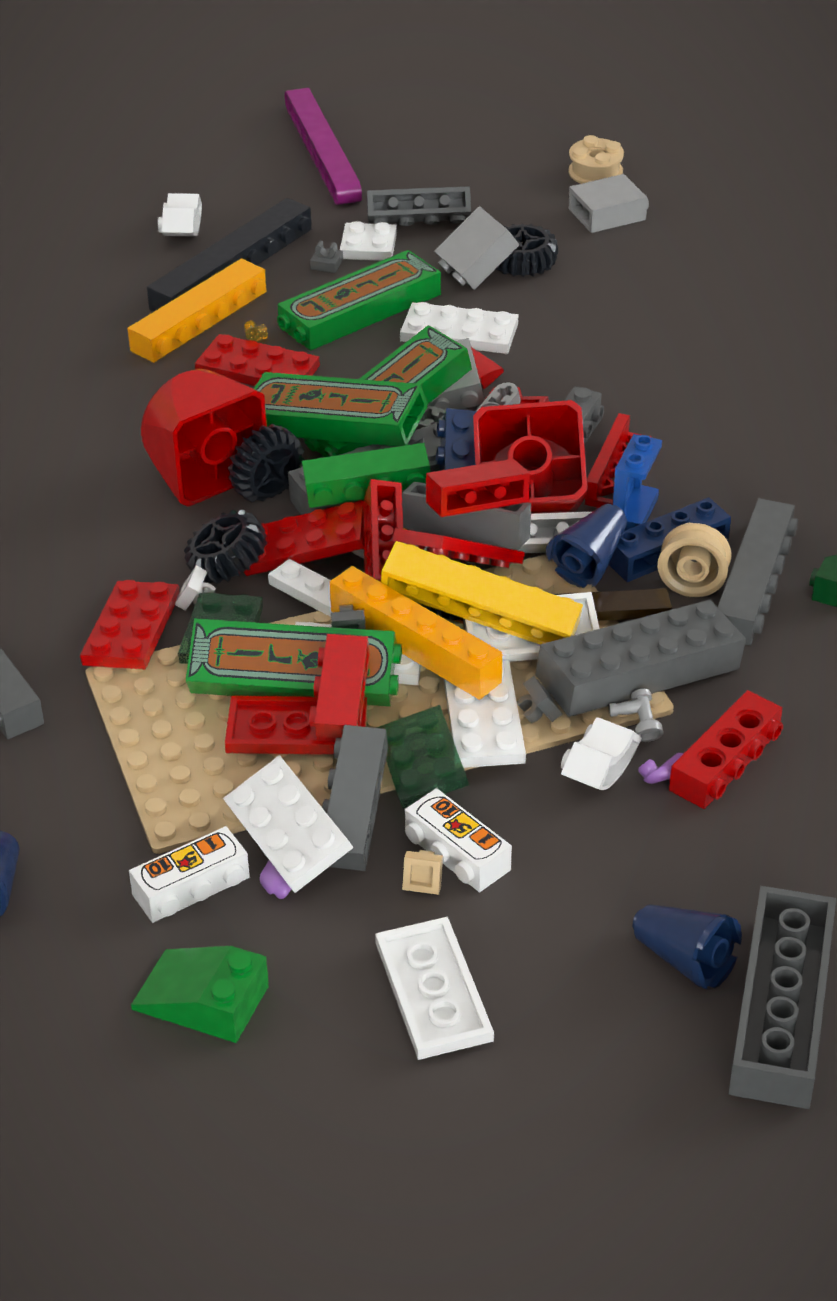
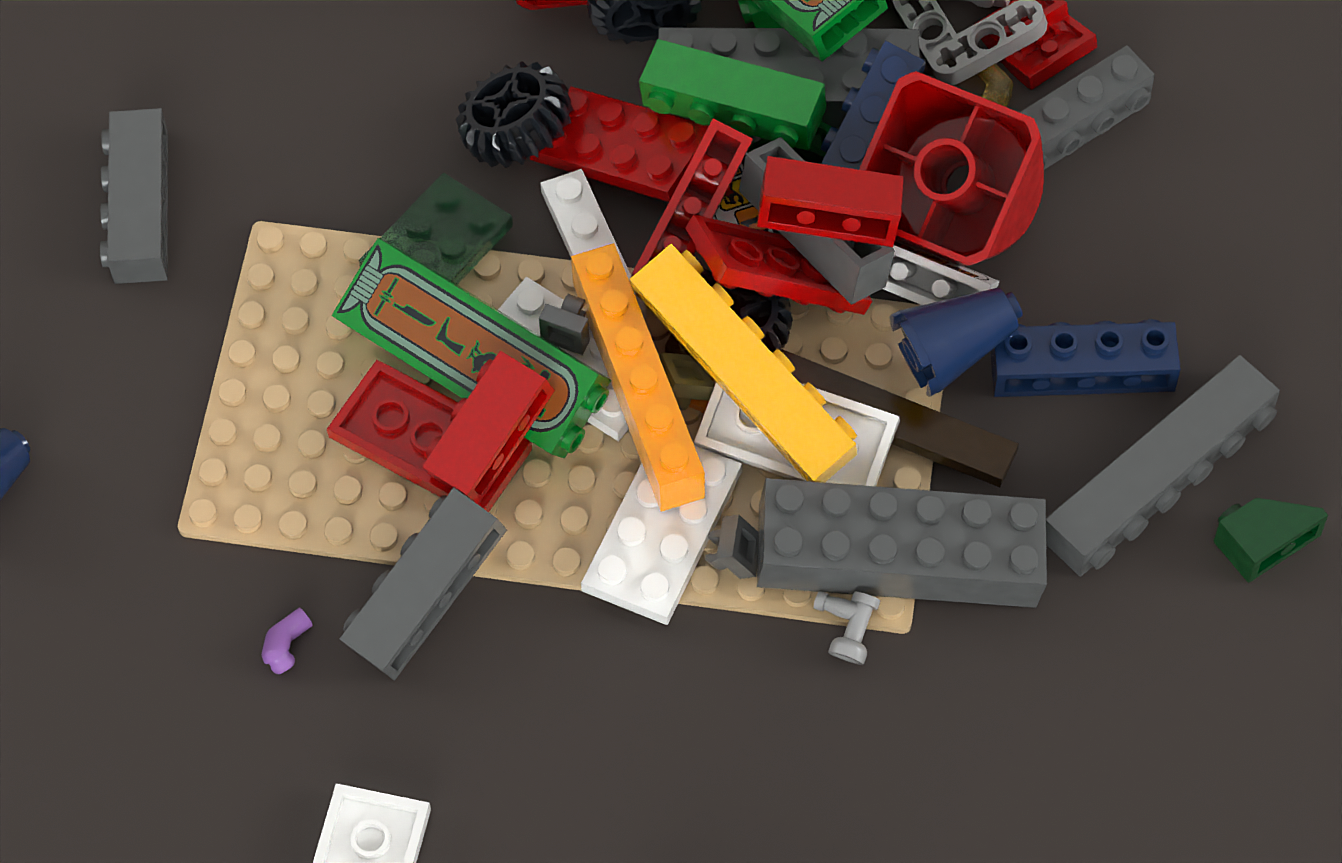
camera: 30 degrees right, 20 degrees up
(130, 625) = (340, 180): red plate -> none
(189, 874) = (188, 592): brick -> none
(192, 587) = (445, 157): white tile -> none
(205, 989) = (114, 758): green slope -> none
(288, 823) = (324, 584): white plate -> none
(422, 872) = (445, 722): tan tile -> none
(423, 756) = (542, 560): clear green plate -> none
(466, 844) = (511, 699): brick -> none
(599, 478) = (1097, 186): red fence -> none
(601, 754) = (759, 663): white brick -> none
(633, 467) = (1084, 259): blue panel -> none
(654, 774) = (828, 723): medium lavender arm -> none
(697, 543) = (1079, 419): tan wheel -> none
(726, 749) = (979, 691): red brick -> none

